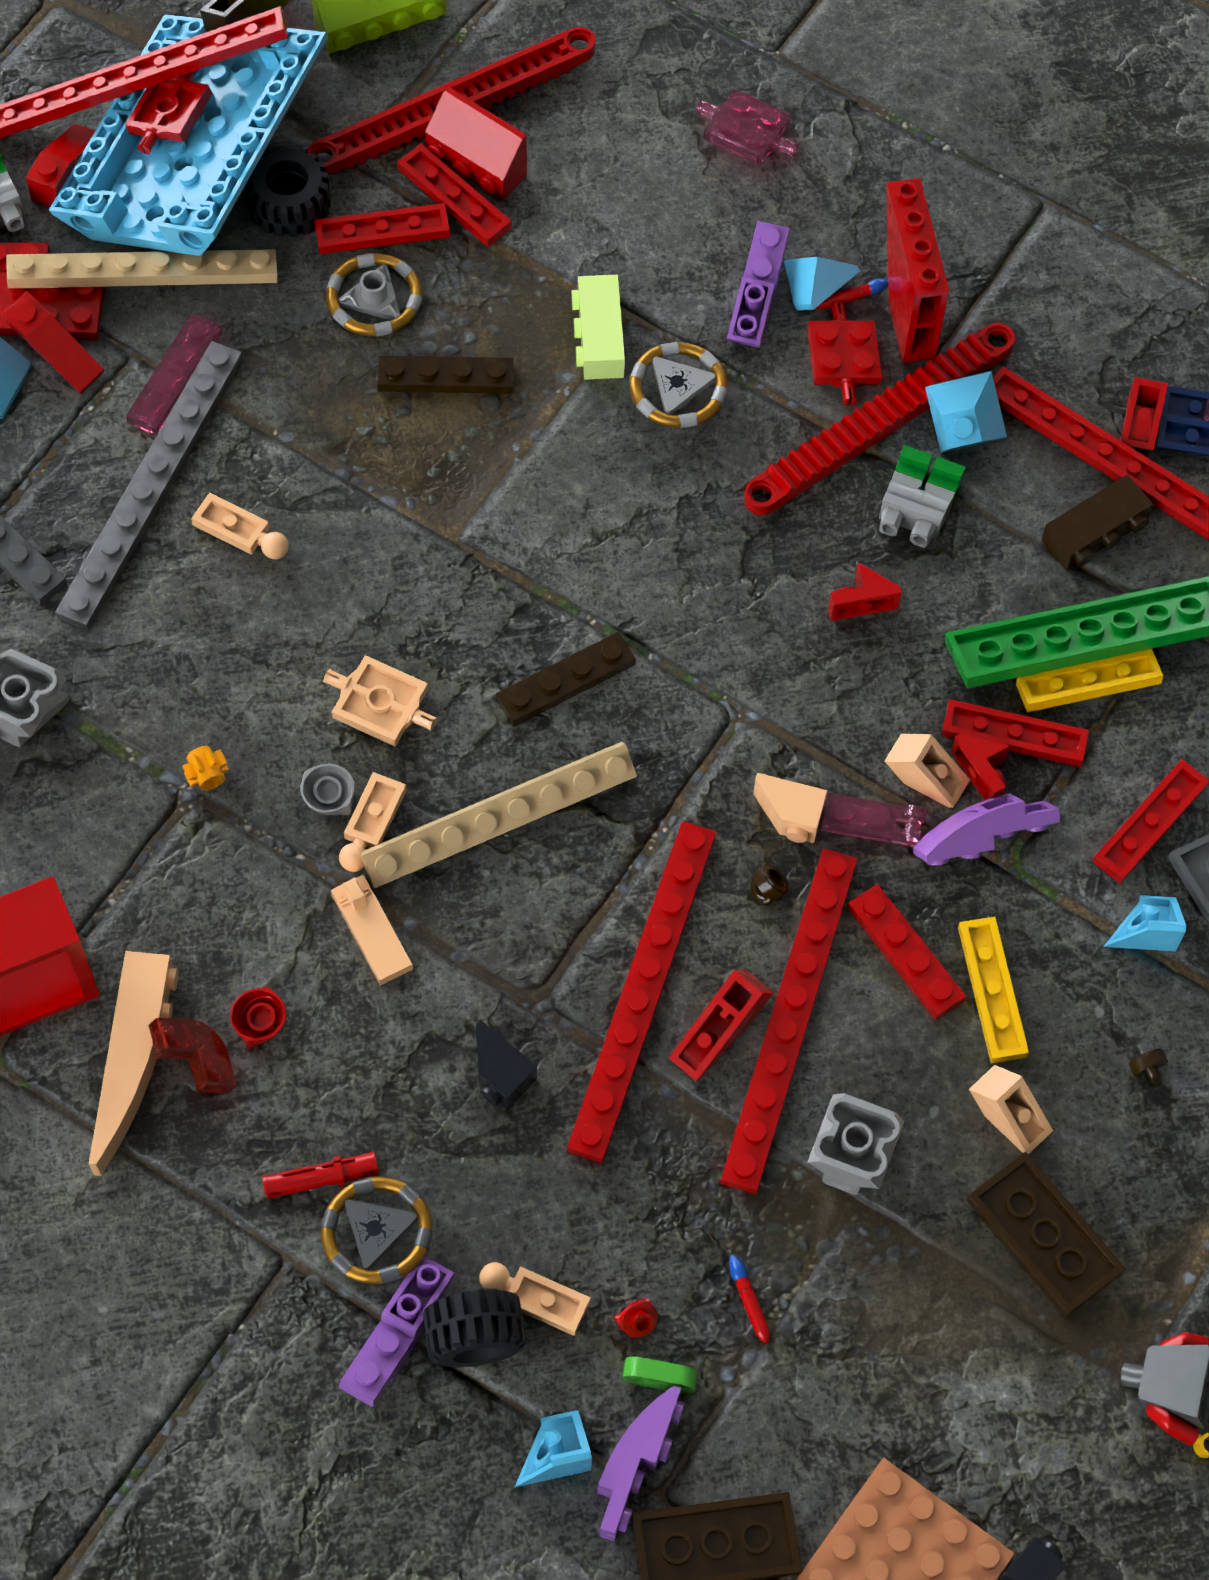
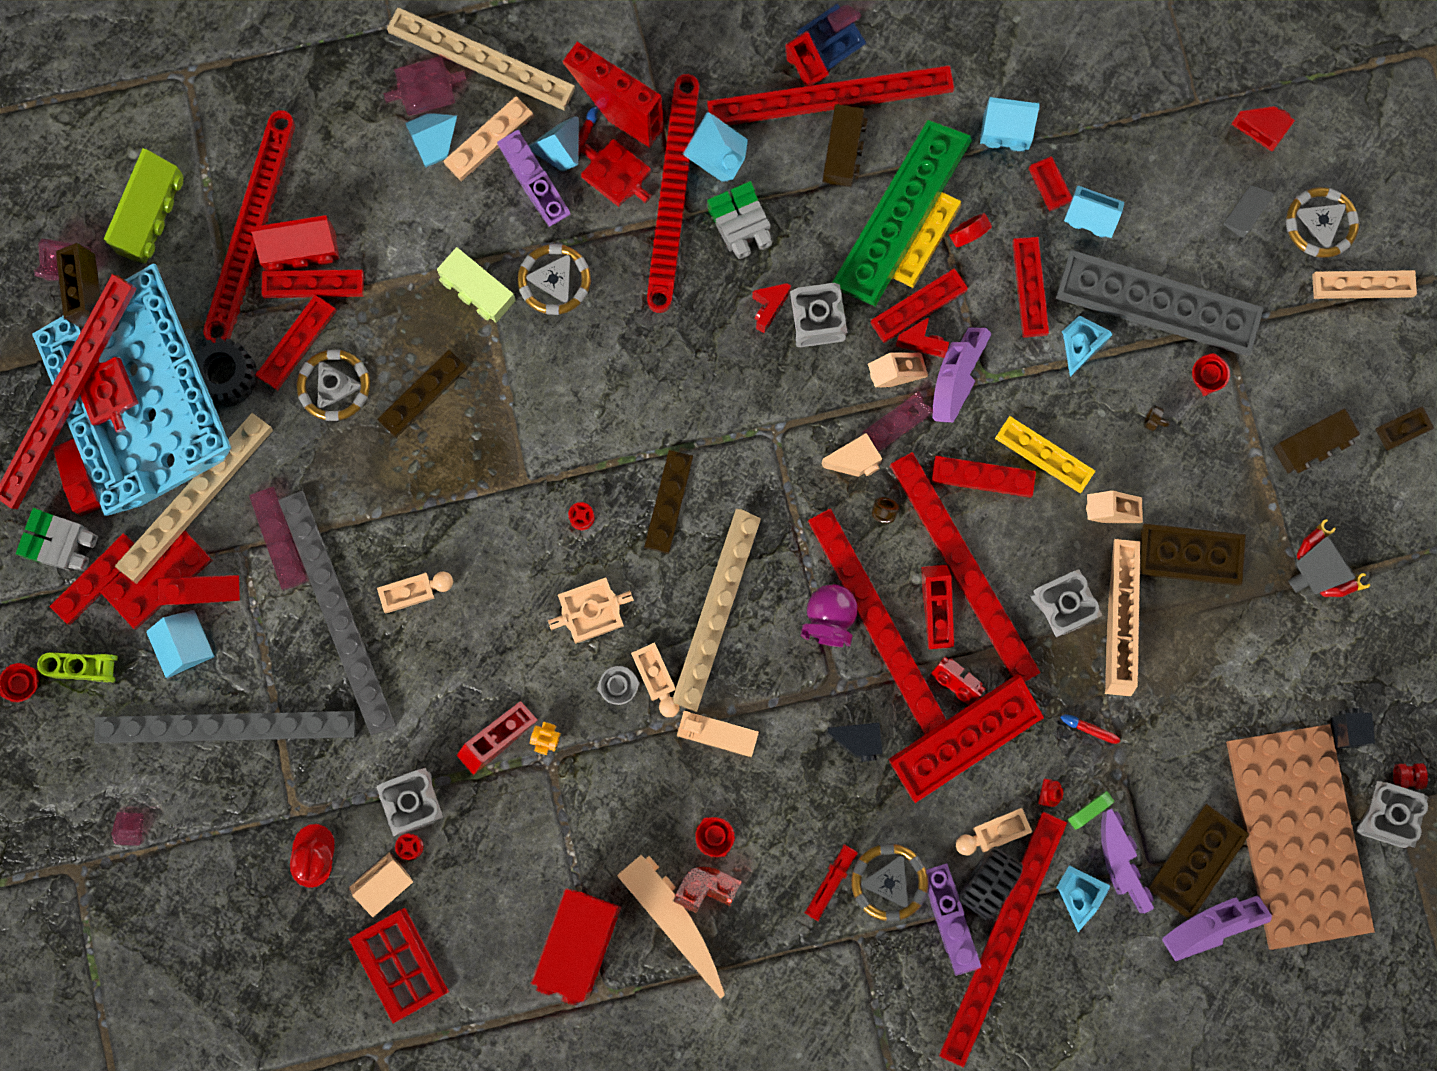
camera: 45 degrees left, 15 degrees up
(160, 723) = (496, 737): none -> red slope
(427, 1407) = (1002, 940): none -> red plate
(463, 604) = (578, 512): none -> red wheel
(604, 921) = (831, 614): none -> magenta tile
(608, 1172) = (966, 738): none -> red plate
(662, 1098) = (948, 675): none -> red hinge
(702, 172) = (432, 136): none -> medium azure slope
(740, 219) = (484, 141): none -> light nougat plate
(826, 150) = (481, 59): none -> tan plate
(898, 643) = (818, 314): none -> light grey piece
(899, 1222) = (1123, 619): none -> light nougat slope
(1144, 711) = (970, 230): none -> red hat

